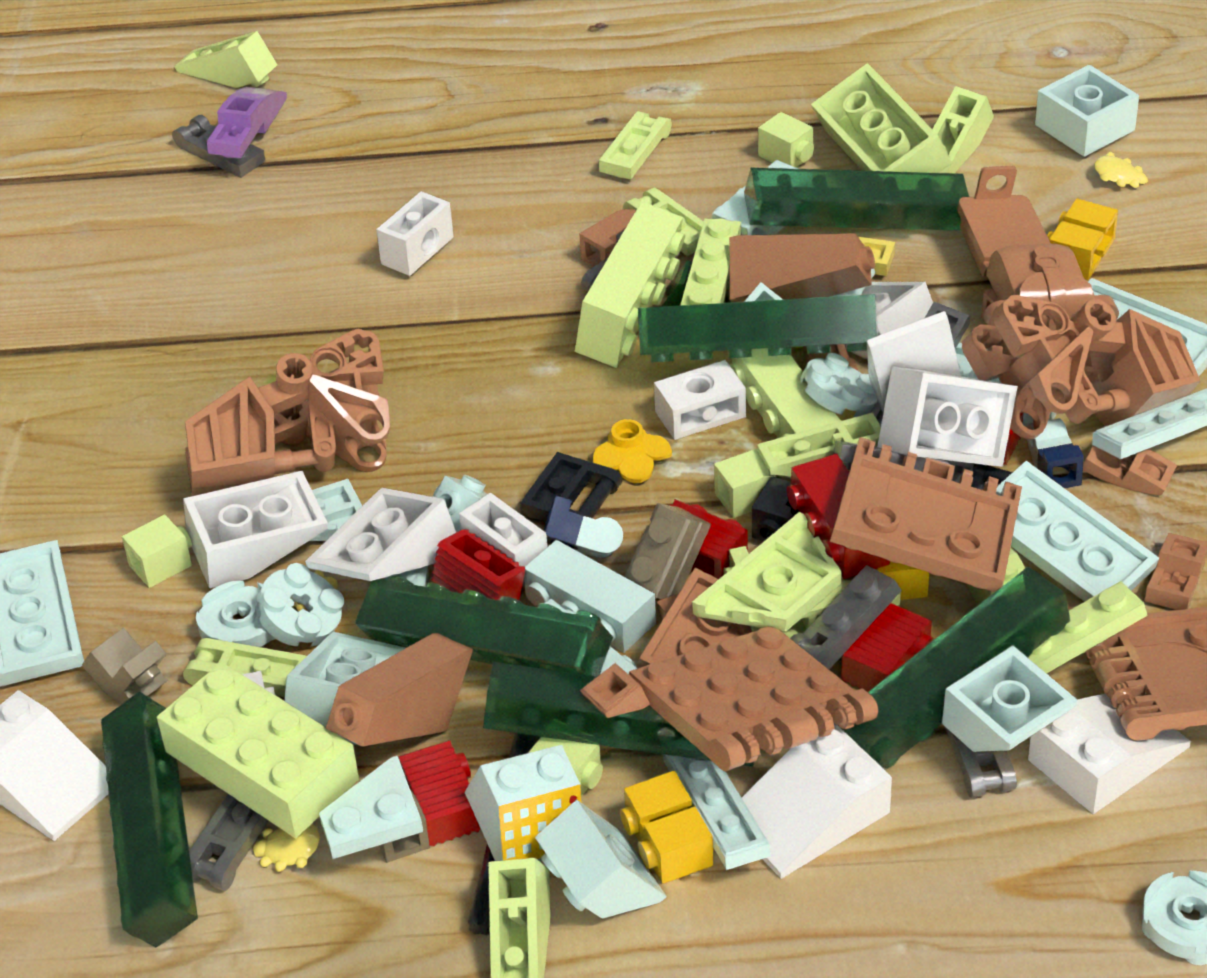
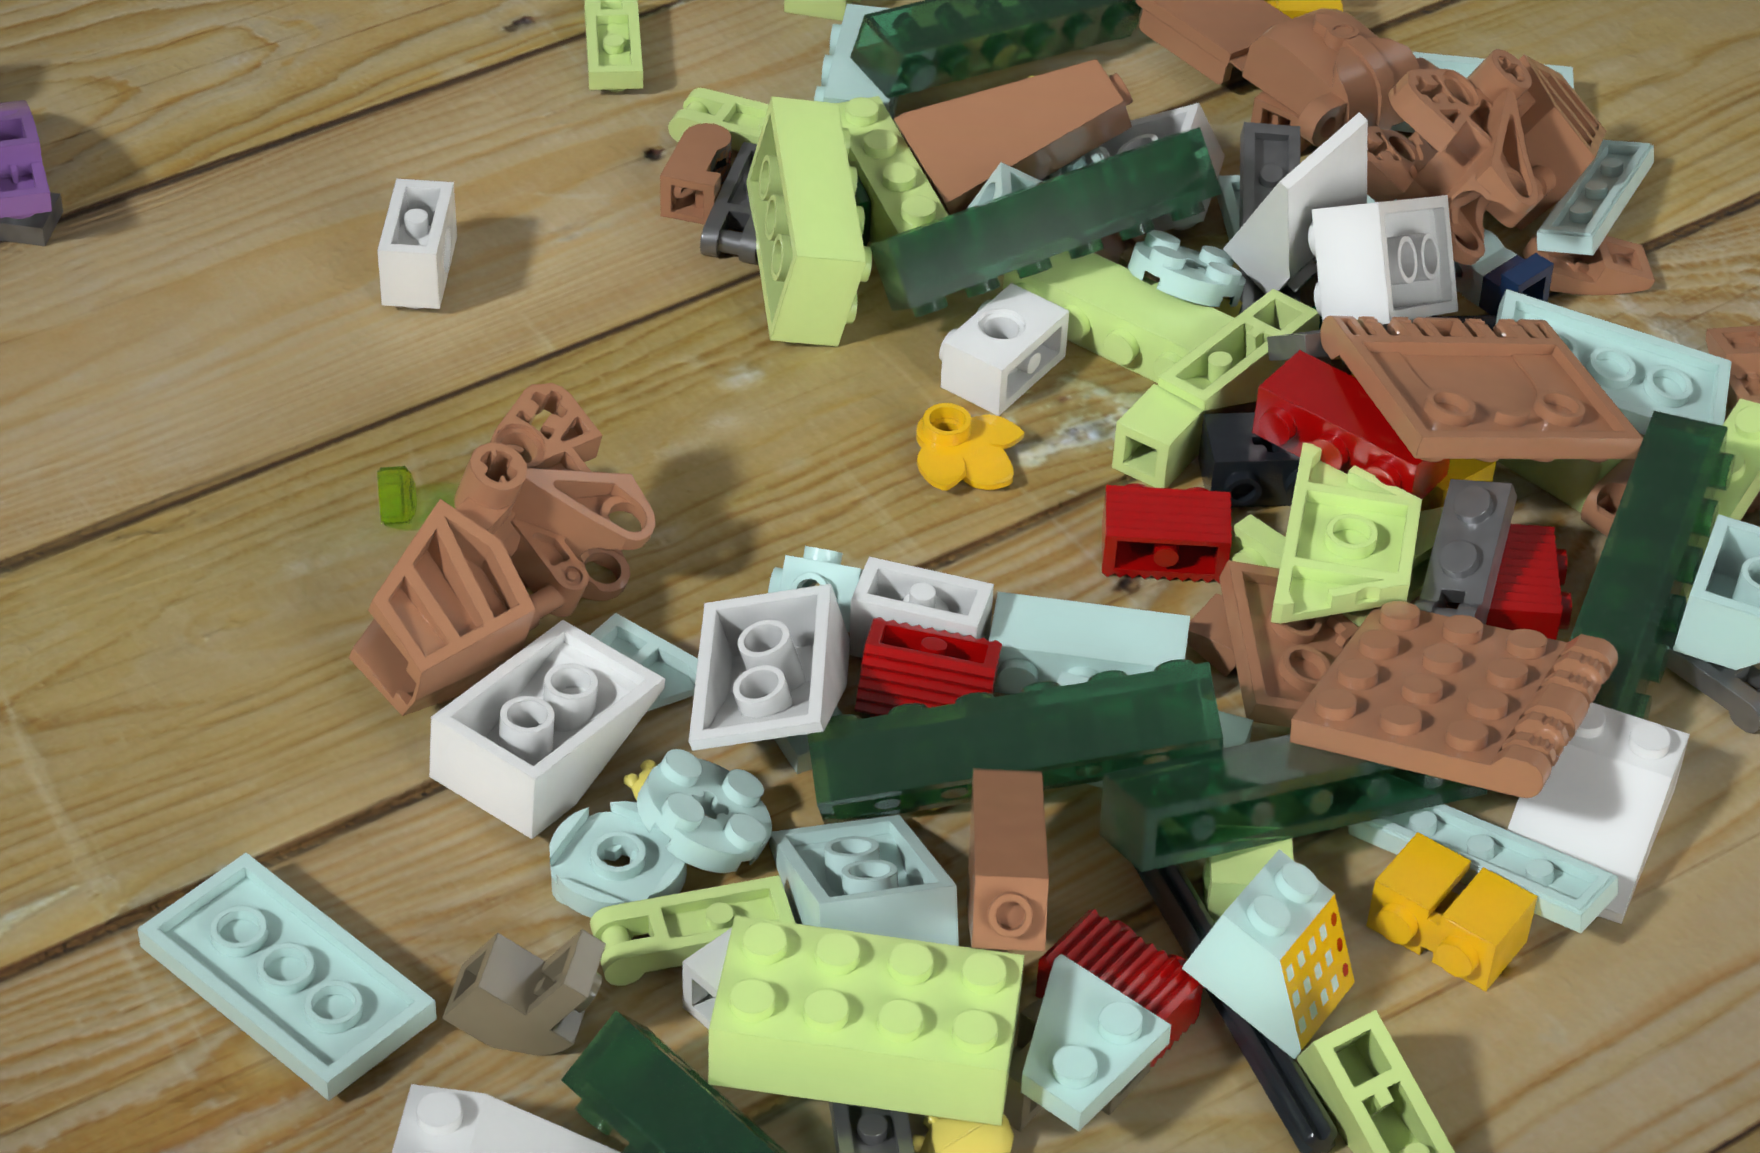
camera: 35 degrees left, 0 degrees up
(157, 550) = (414, 813): yellowish green brick -> none
(566, 478) = (917, 528): black plate -> none
(586, 535) = (1016, 569): leg -> none
(597, 864) = (1420, 990): light aqua slope -> none
(615, 692) = (1303, 750): nougat slope -> none
(667, 550) = (1164, 551): dark tan brick -> none

